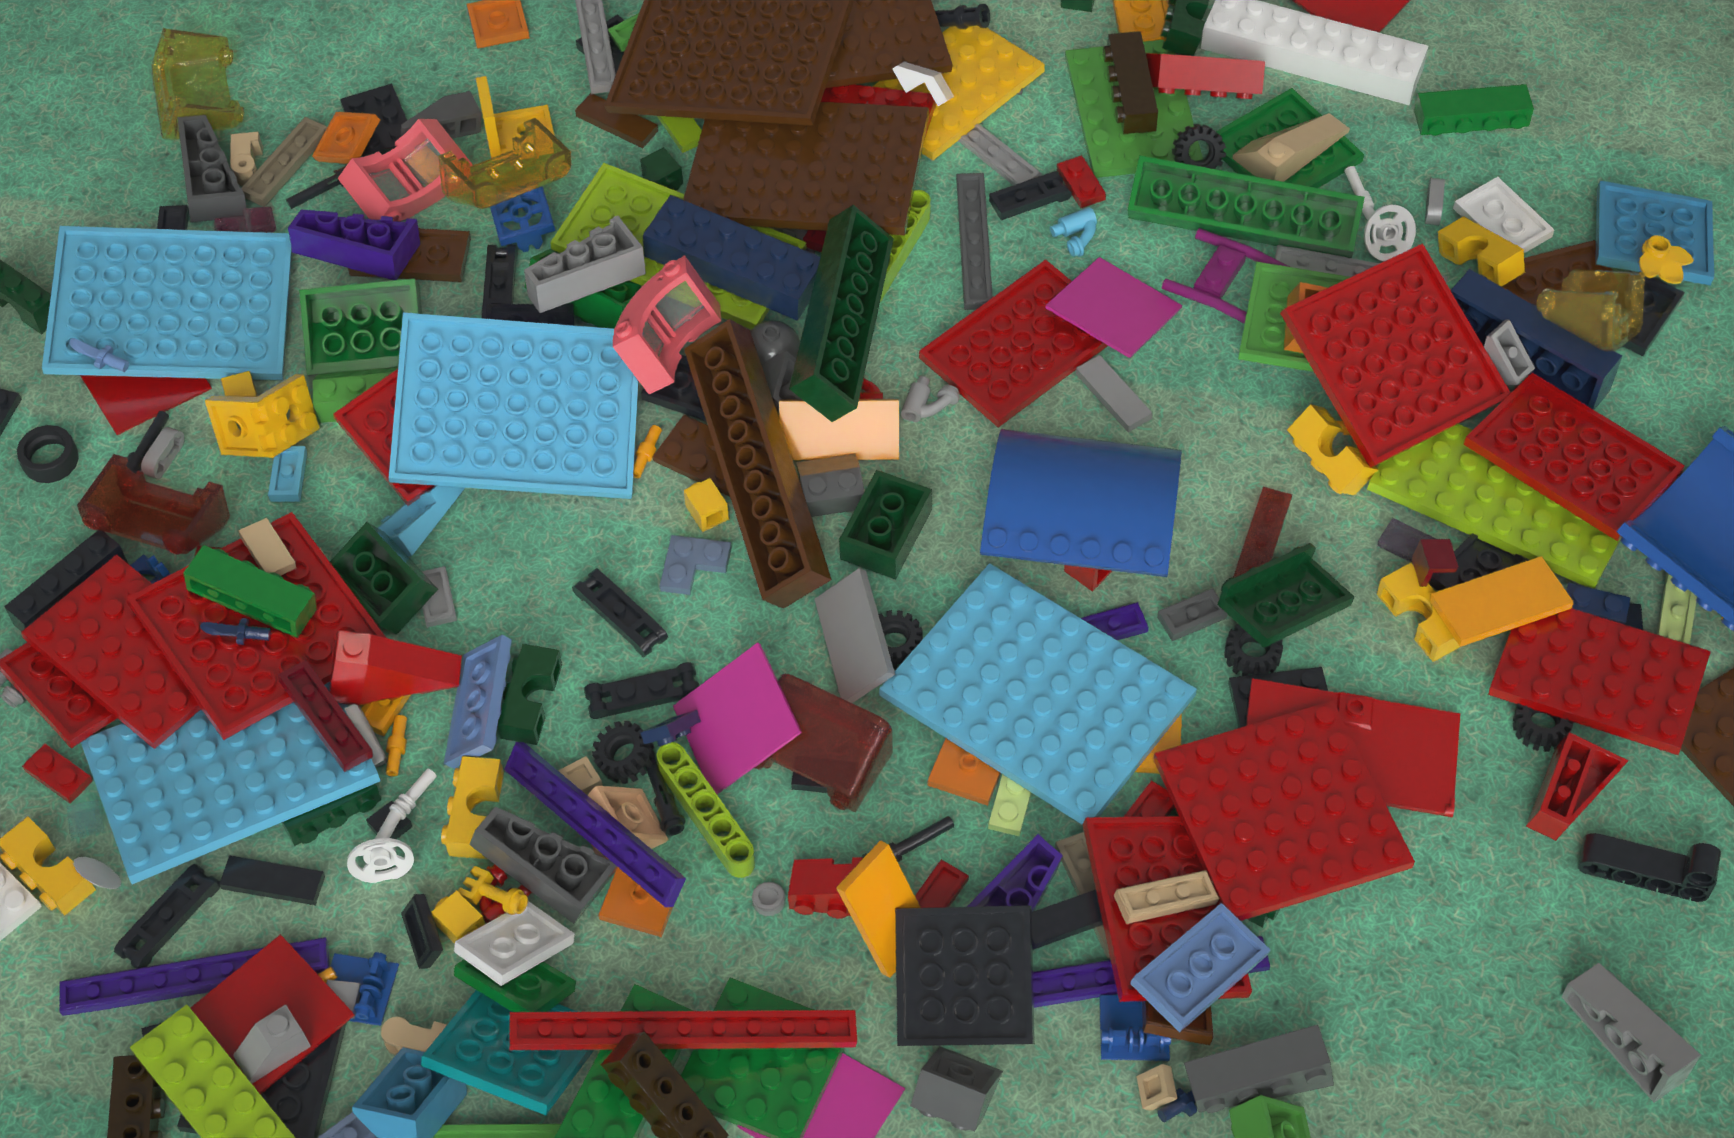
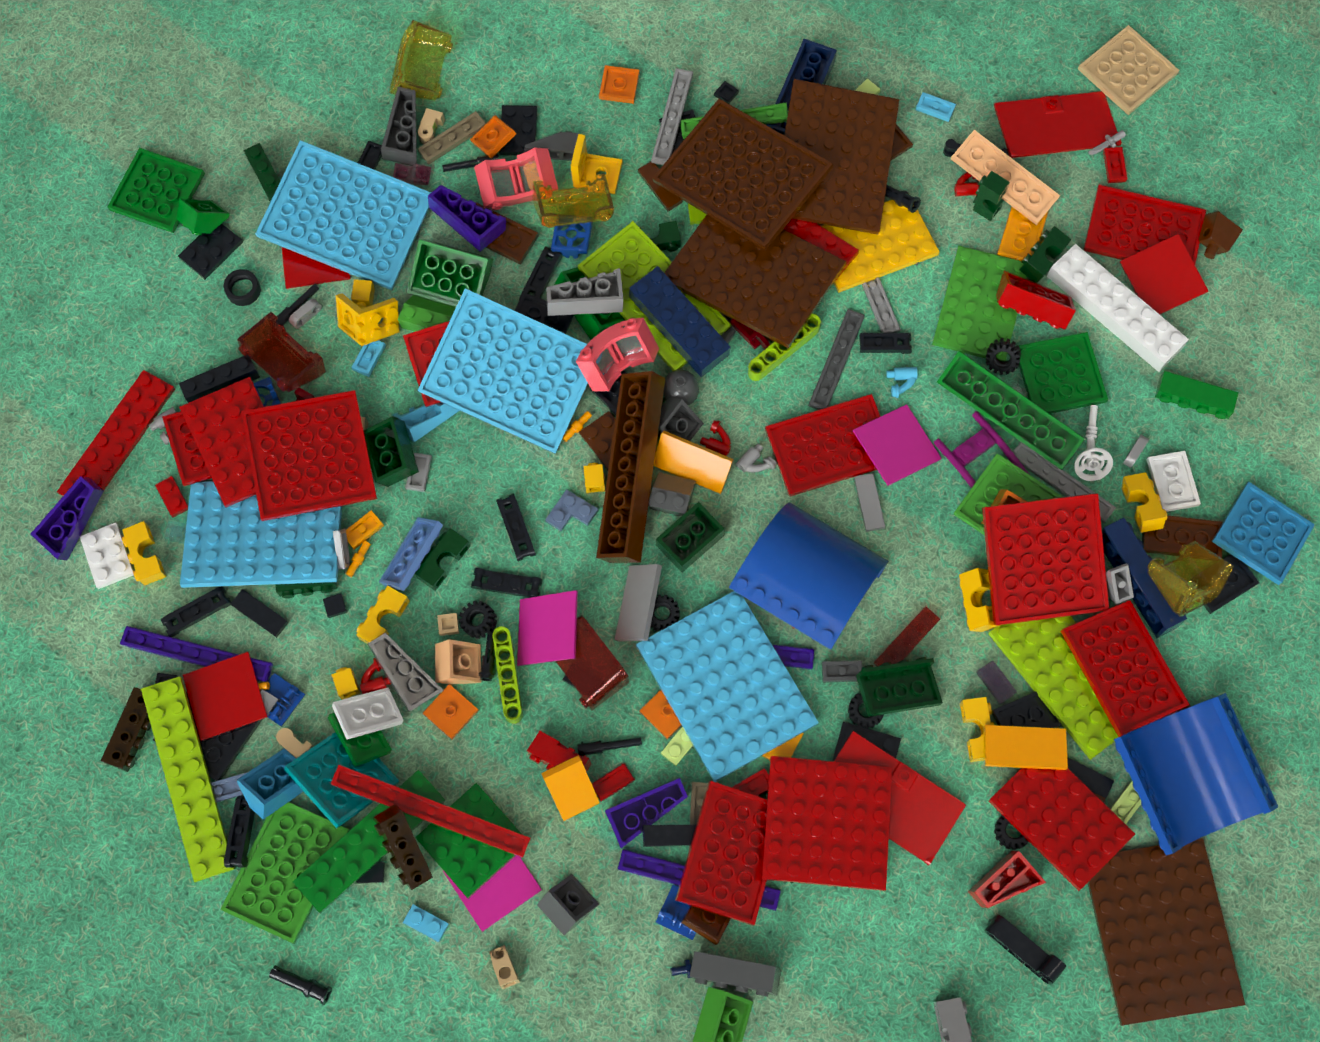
camera: 25 degrees right, 15 degrees up
(97, 872) = (168, 570): white sticker -> none
(102, 356) = (291, 240): medium blue piece -> none
(242, 631) = (295, 459): dark blue piece -> none
(250, 590) = (309, 436): green brick -> none
(267, 547) = (330, 411): tan tile -> none
(270, 1044) = (216, 717): light grey slope -> none
(325, 715) = (319, 532): dark red plate -> none
(380, 852) = (318, 628): white dish -> none
(382, 668) = (364, 514): red wedge -> none
(422, 931) = (323, 681): black tile -> none
(513, 901) = (377, 688): yellow hinge -> none
(595, 824) = (439, 662): dark purple tile -> none
(670, 729) = (508, 617): dark blue plate -> none
(768, 898) = (519, 743): light grey tile -> none
(842, 314) = (722, 392): dark green brick -> none
(913, 75) = (850, 234): white slope -> none
(964, 976) = (599, 845): black plate -> none
(1081, 181) = (922, 345): red plate -> none
(1131, 82) = (984, 291): dark brown brick -> none
(1156, 1087) = (676, 954): tan plate -> none
(1166, 897) = (732, 849): tan tile -> none
(1200, 967) = (729, 901): medium blue plate -> none
(1290, 149) = (1057, 378): tan wedge -> none
(1433, 557) = (998, 704): dark red panel -> none
(1599, 602) = (1086, 771): dark blue plate -> none
(1663, 259) = (1254, 562): yellow plate -> none

